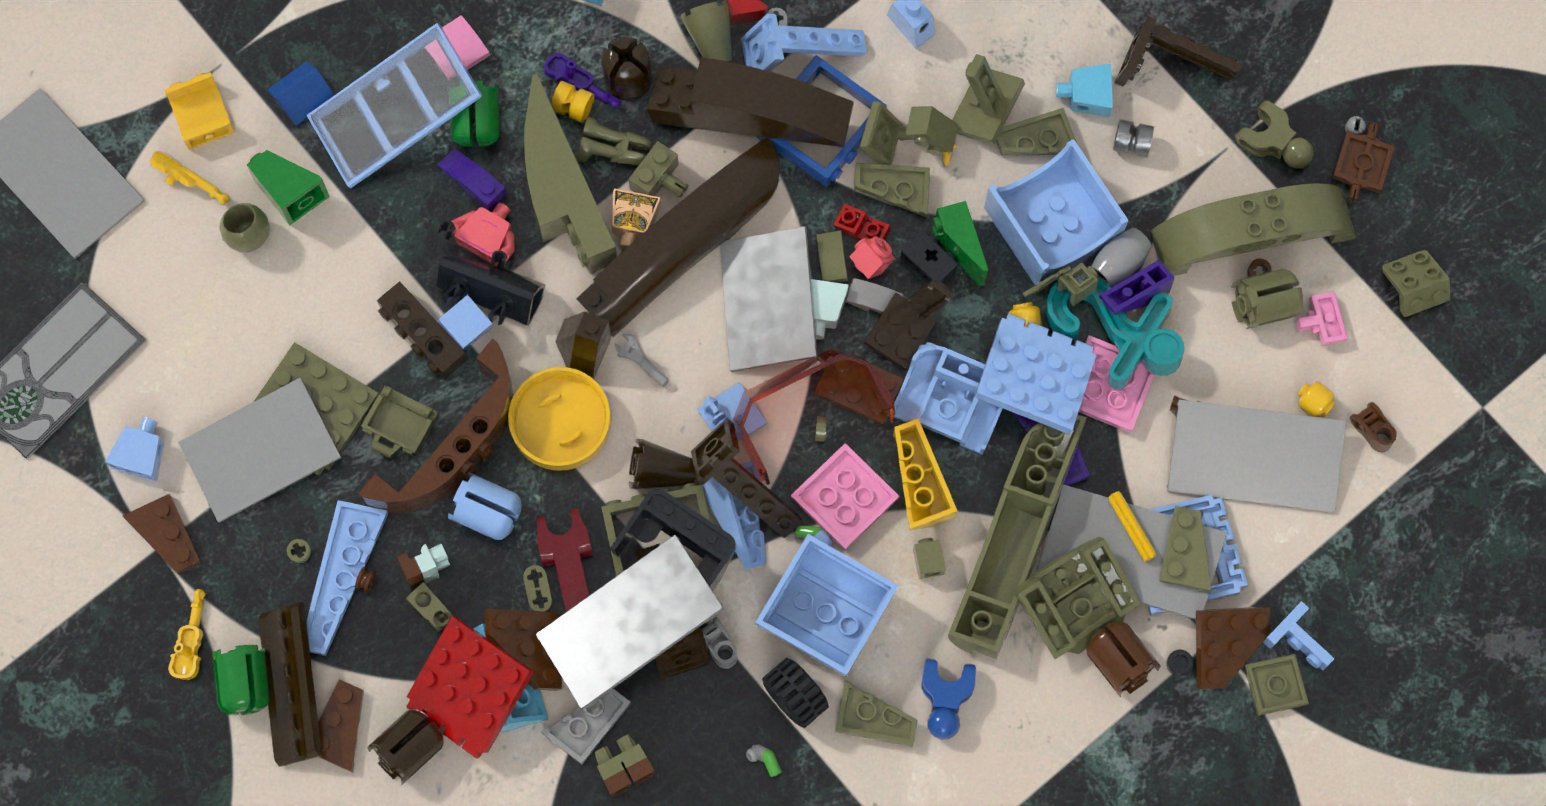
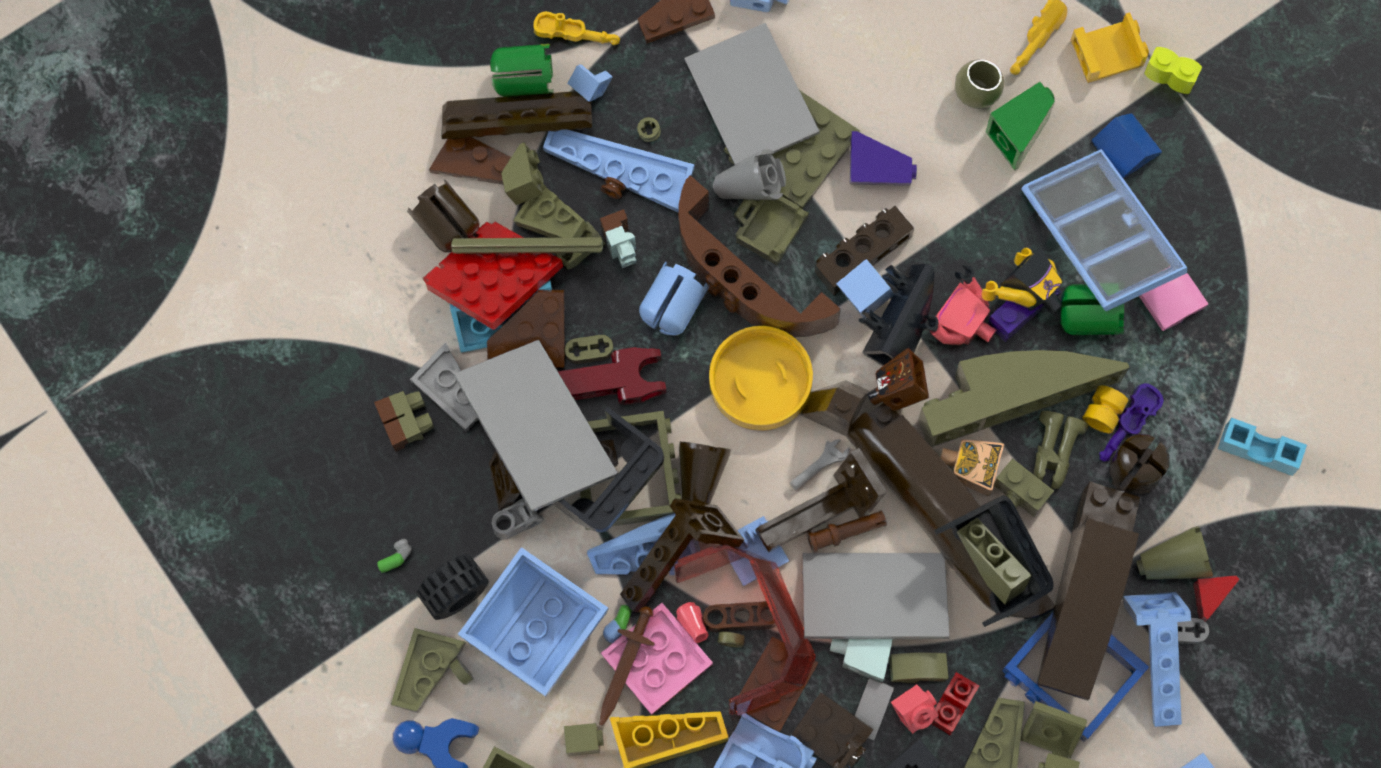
camera: 100 degrees right, 0 degrees up
(225, 47) = (1170, 69): none -> neon yellow brick
(253, 613) = (587, 84): none -> light blue panel
(332, 321) = (878, 164): none -> dark purple slope
(355, 439) = (752, 179): none -> light grey cone
(357, 672) = (521, 175): none -> olive slope
(401, 638) = (550, 217): none -> olive wing
(439, 651) = (527, 245): none -> olive axle
(452, 168) = (1029, 283): none -> torso
(561, 282) = (900, 382): none -> reddish brown torso
(663, 322) = (857, 489): none -> dark brown bracket
(710, 340) = (834, 534): none -> reddish brown pin
(730, 172) = (1007, 526): none -> black windscreen
(736, 183) = (994, 562): none -> olive slope
(798, 432) = (729, 623): none -> reddish brown beam
(807, 464) = (692, 621): none -> coral cone
(852, 522) = (635, 640): none -> reddish brown sword
(875, 681) = (461, 672): none -> olive tile

